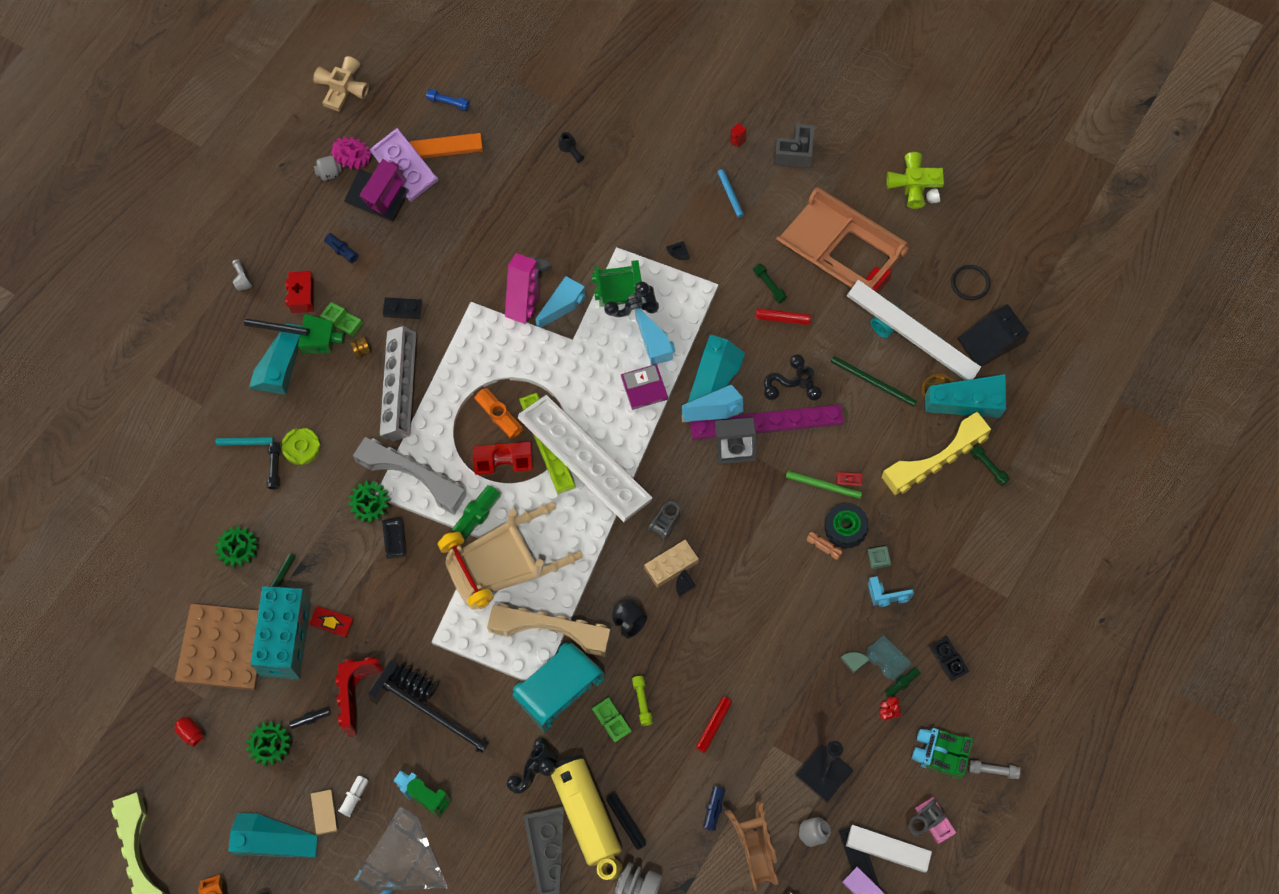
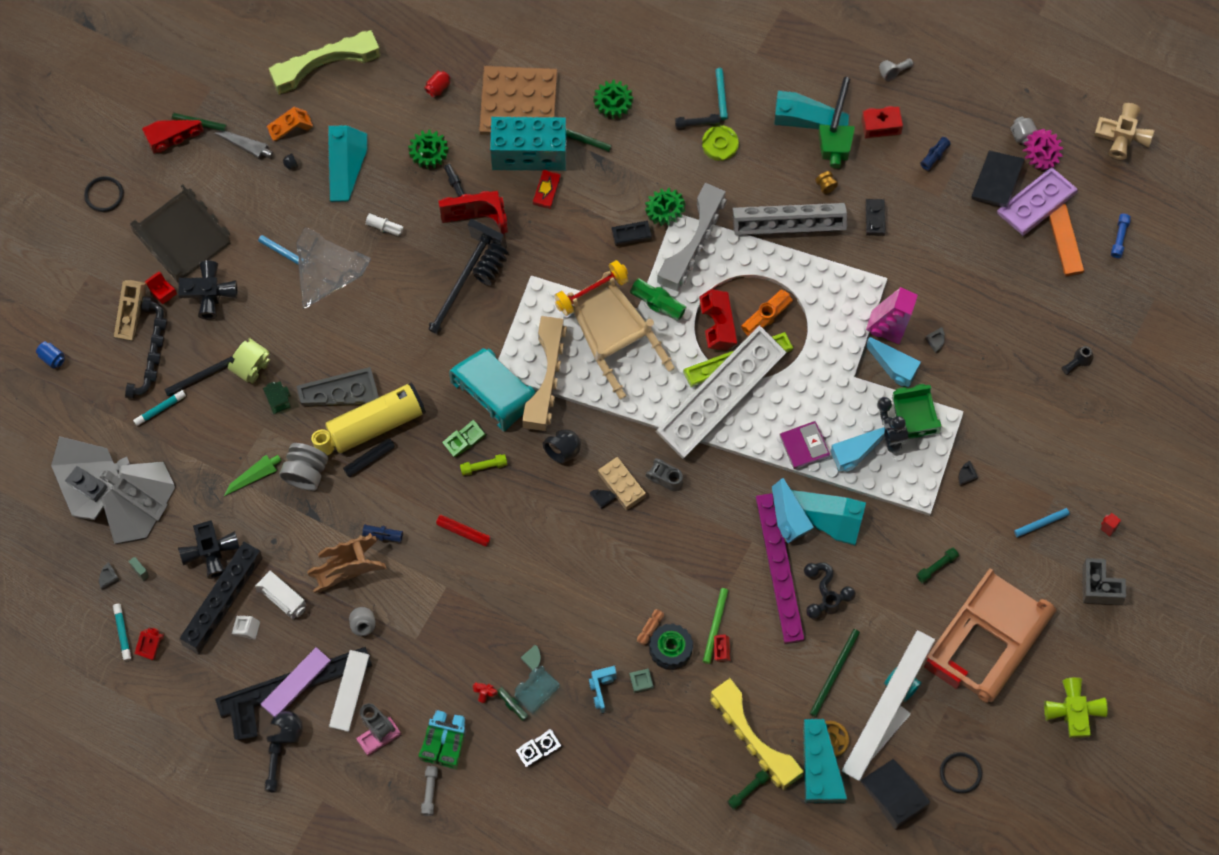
camera: 85 degrees right, 0 degrees up
(324, 812) = (369, 203): tan tile -> none
(342, 320) = (857, 163): bright green slope -> none
(383, 186) = (998, 178): magenta window -> none
(415, 788) = (385, 279): green hips -> none
(541, 760) = (415, 373): black piece -> none
(735, 440) = (753, 534): dark grey slope -> none
(783, 316) = (900, 580): red axle -> none
(825, 771) = (420, 630): black tile -> none
(933, 196) = (1061, 732): white hinge -> none

